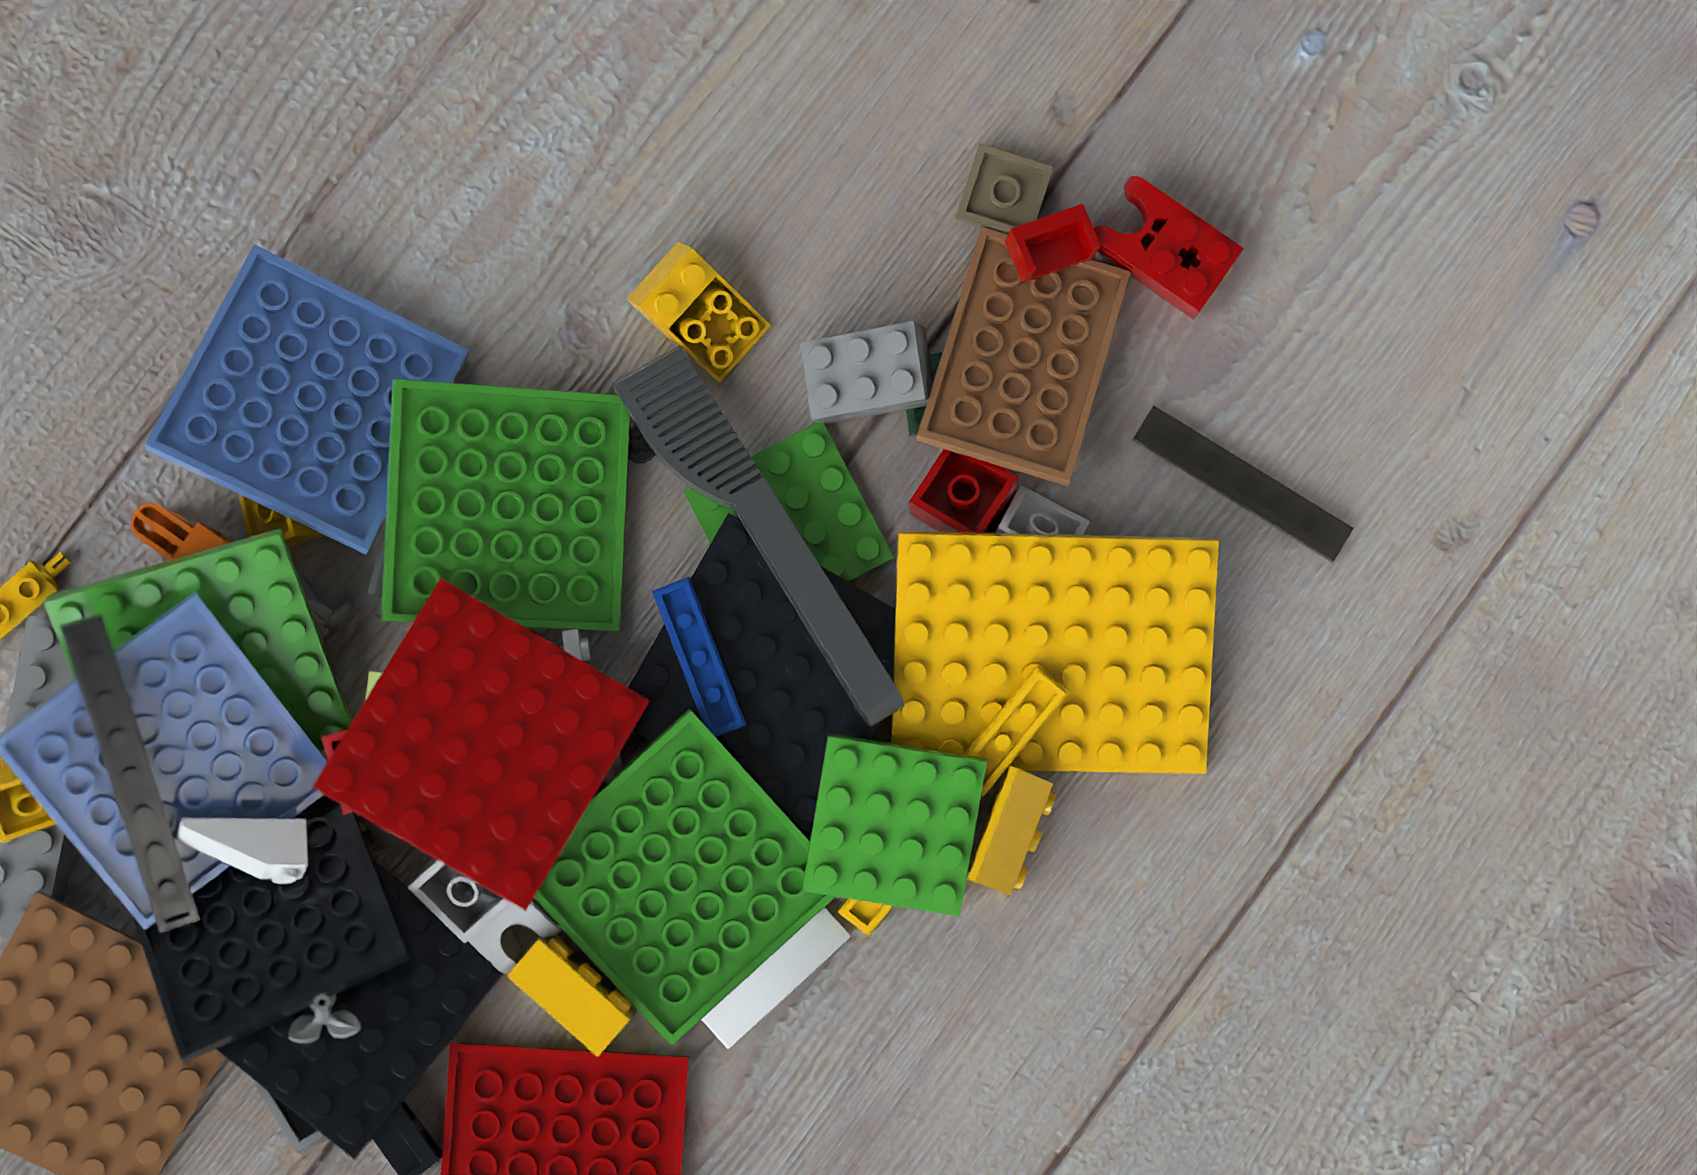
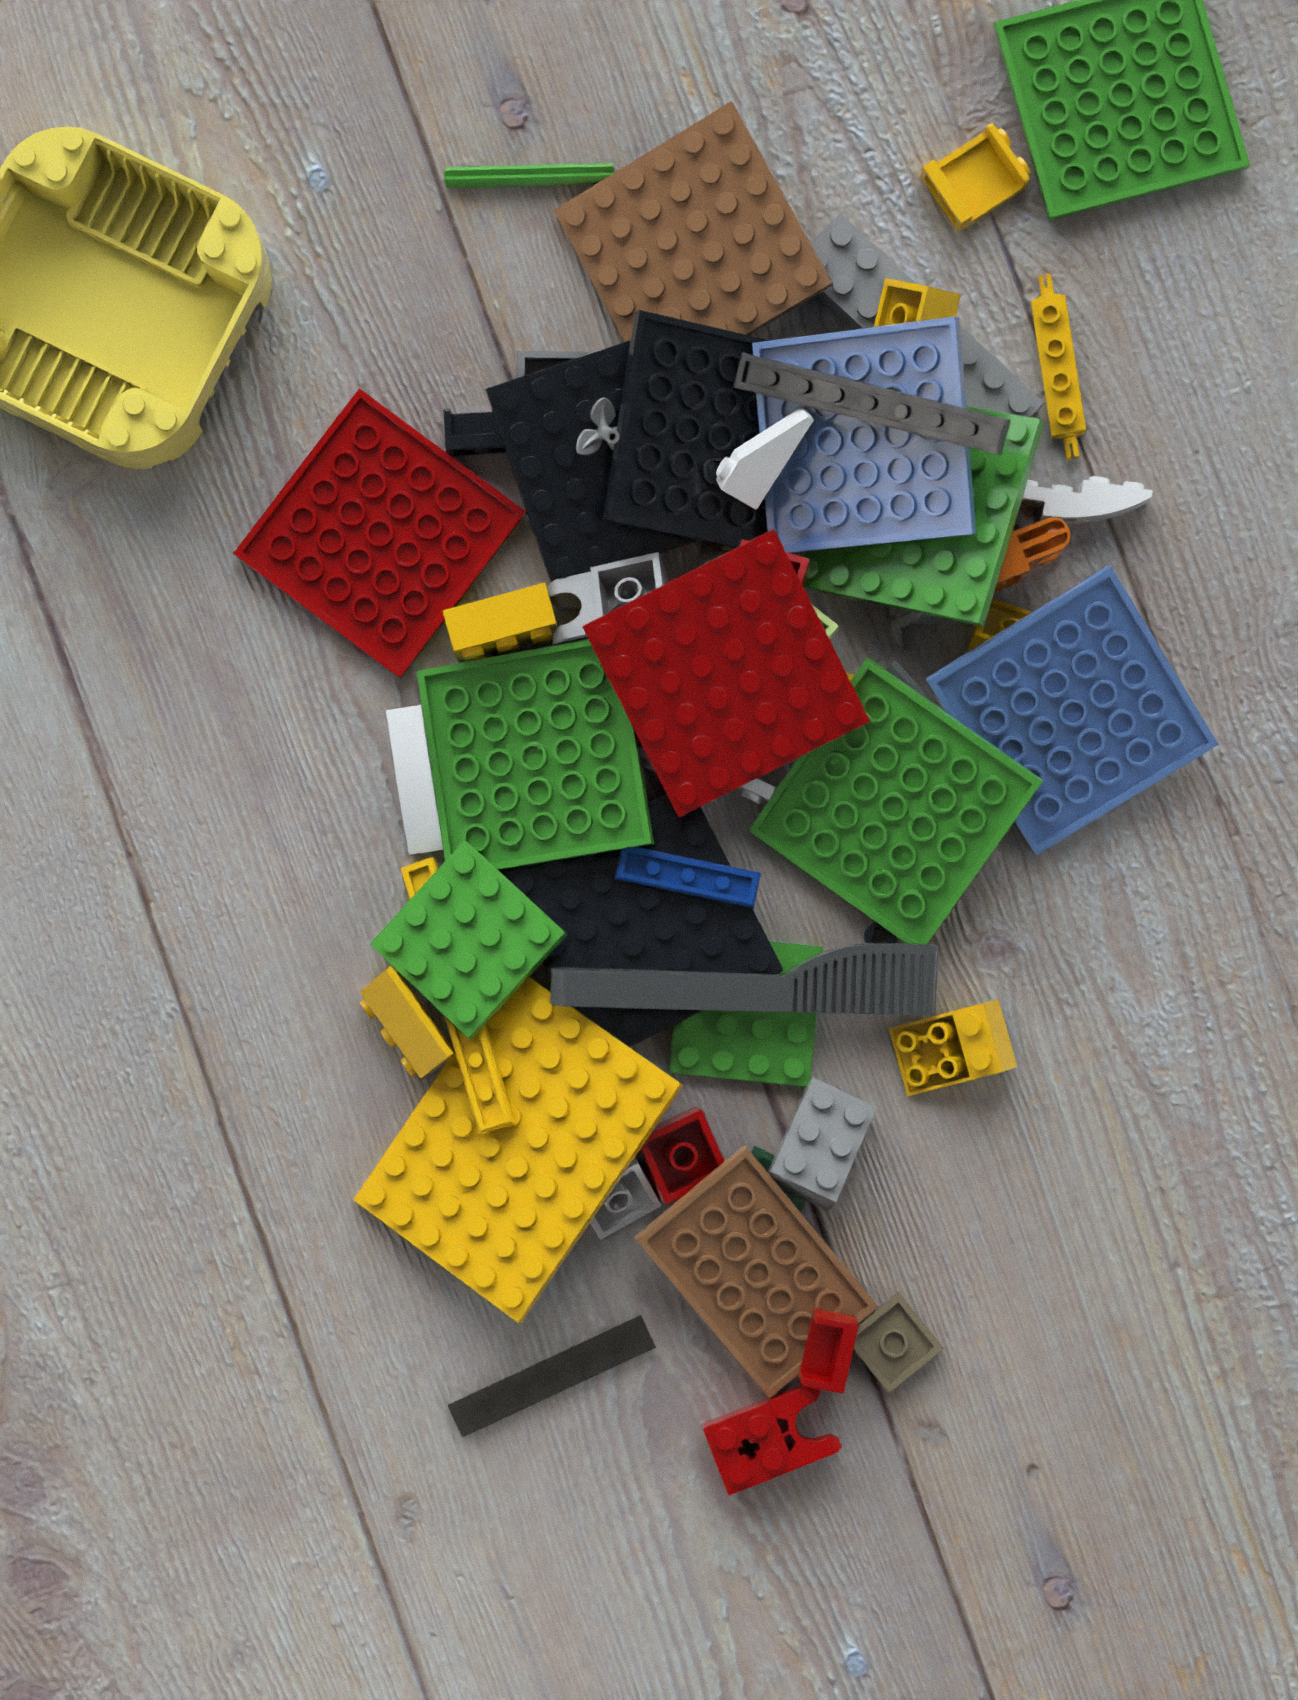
camera: 125 degrees right, 0 degrees up
(95, 511) = (1092, 503): none -> white slope

